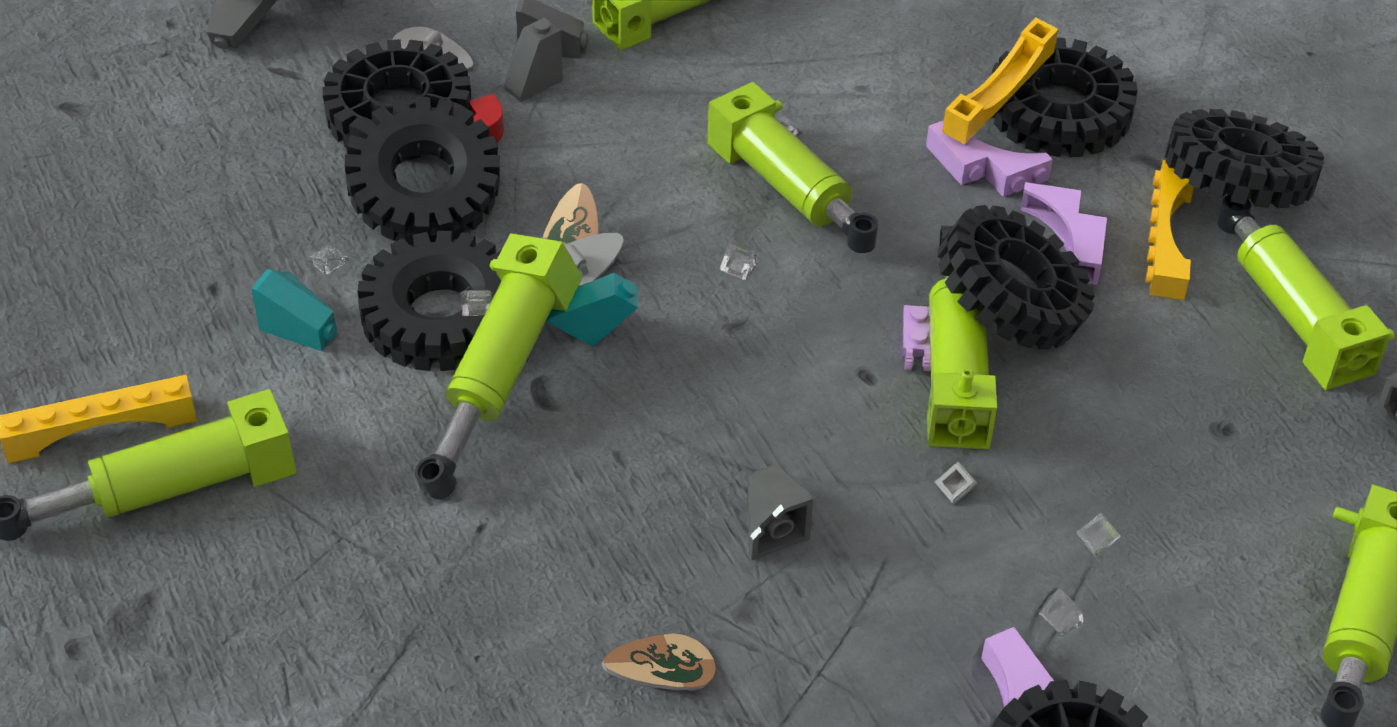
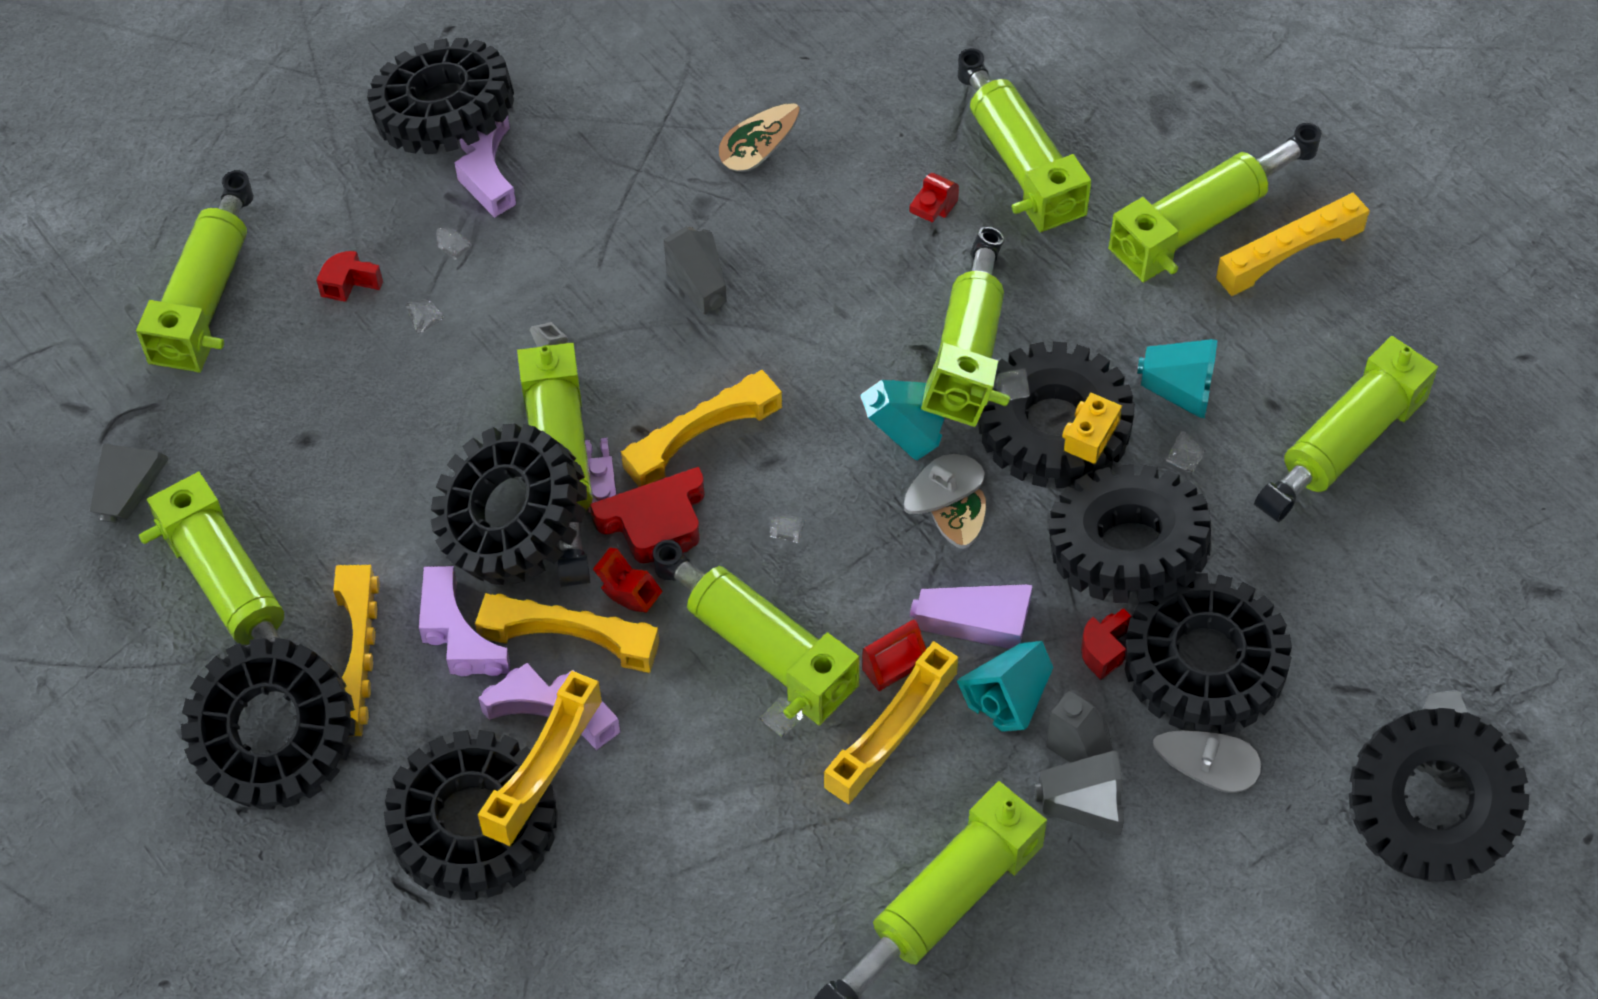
camera: 170 degrees right, 10 degrees up
(99, 253) = (1390, 389): none -> lime piece
(342, 578) = (1052, 184): none -> lime piece
(417, 242) = (1092, 427): none -> yellow brick
(467, 536) = (935, 198): none -> red brick
(578, 102) = (1009, 685): none -> teal slope
(584, 159) = (975, 613): none -> lavender slope
(646, 118) = (859, 762): none -> yellow arch
(672, 141) = (896, 661): none -> red tile
(749, 372) = (751, 398): none -> yellow arch
(867, 284) = (654, 514): none -> red brick
(902, 231) = (625, 585): none -> red brick
(910, 192) = (508, 617): none -> yellow arch
(1195, 591) = (343, 272): none -> red brick

